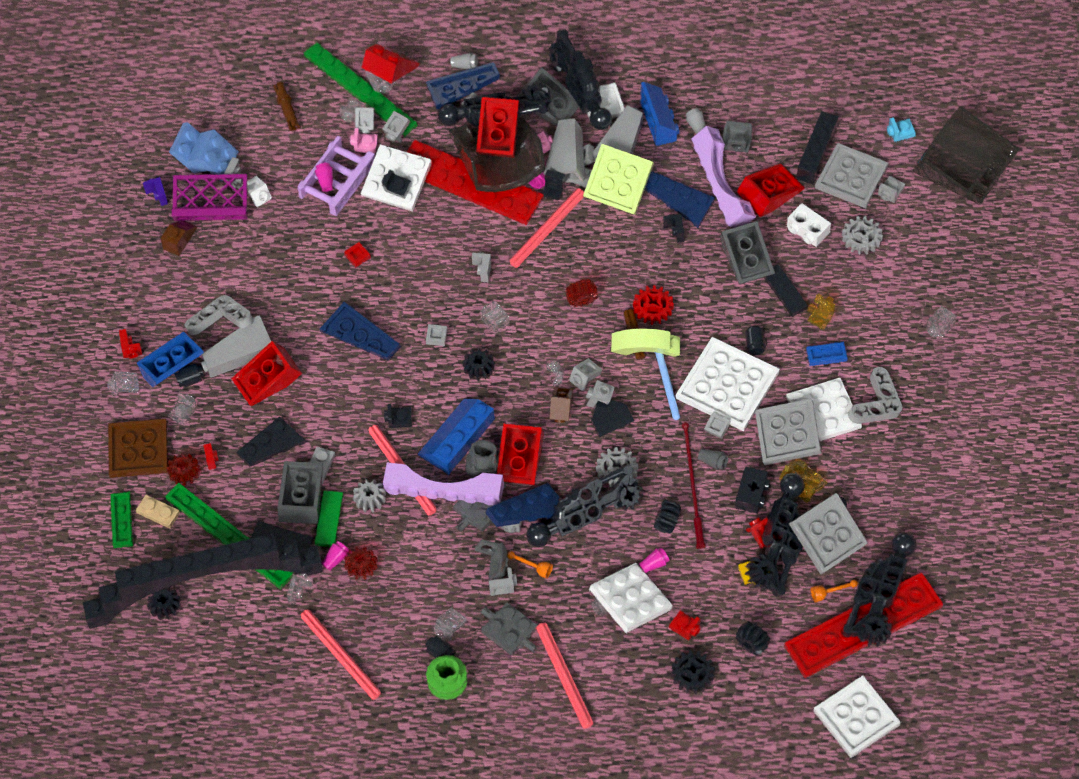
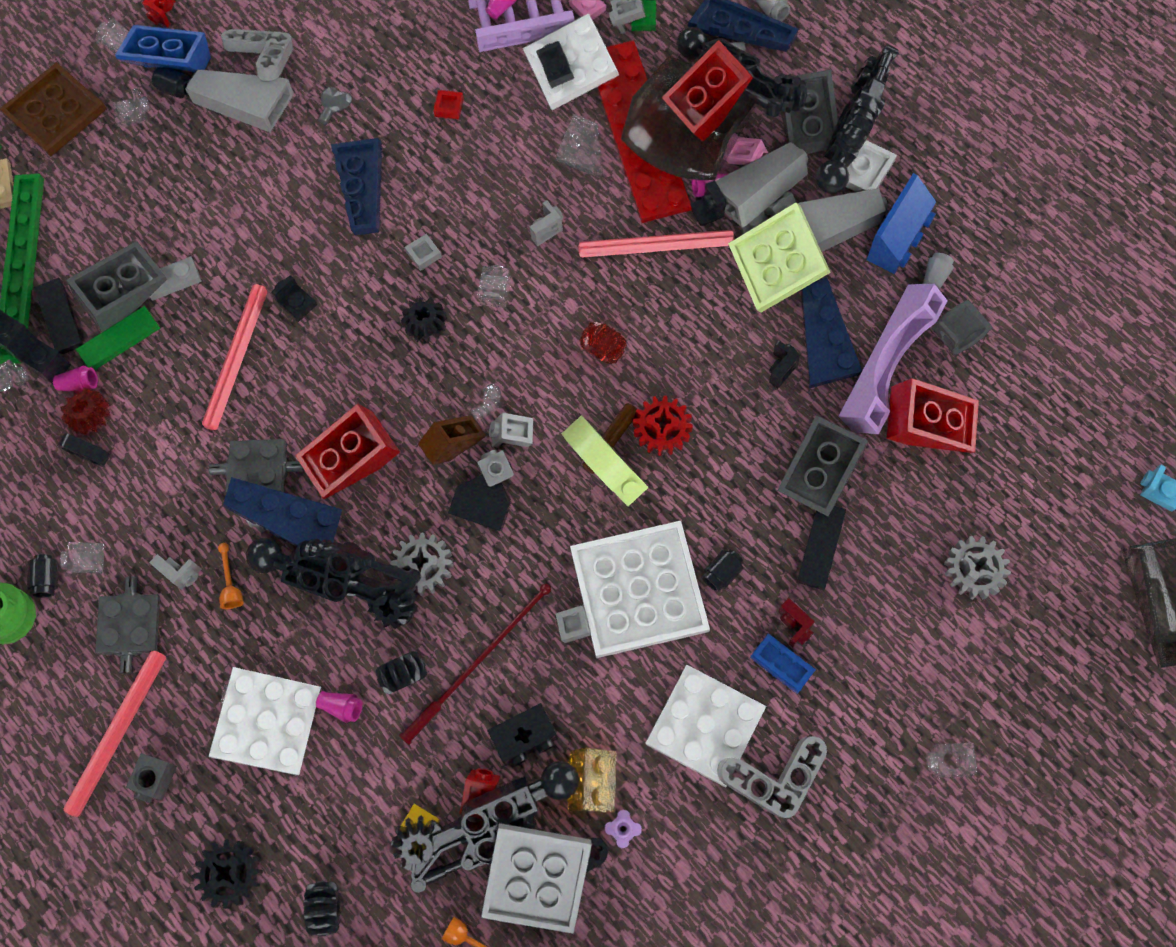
camera: 50 degrees right, 10 degrees up
(177, 474) = (60, 165): clear red gear -> none
(211, 456) = (94, 174): red plate -> none
(266, 374) = (235, 143): red slope -> none
(272, 440) = (165, 213): black wing -> none
(291, 308) = (333, 102): none -> dark grey rock
(362, 498) = (169, 361): light grey gear -> none
(383, 579) = (83, 449): none -> black beam
(453, 215) = (581, 146): none -> clear wing
(457, 434) = (320, 373): blue slope -> none
(481, 459) = (303, 410): dark grey piece -> none
(483, 488) = (212, 368): lavender arch -> none
(498, 560) = (197, 544): dark grey piece -> none
(604, 665) = (144, 767): none -> dark grey brick
(668, 386) = (576, 529): light blue piece -> none
(685, 625) = (286, 811): red bracket -> none
(715, 459) = (528, 658): dark grey cone -> none
(788, 431) = (634, 711): light grey plate -> none
(810, 222) = (935, 499): white brick -> none
(812, 328) = (795, 617): none -> dark red bracket
(816, 147) = (1023, 424): black arch -> none
(822, 315) = (833, 610): clear yellow piece -> none
(843, 488) = (632, 829): none -> lavender plate
(851, 175) = (1043, 488): light grey plate -> none
(891, 189) = (1072, 546): light grey bracket -> none

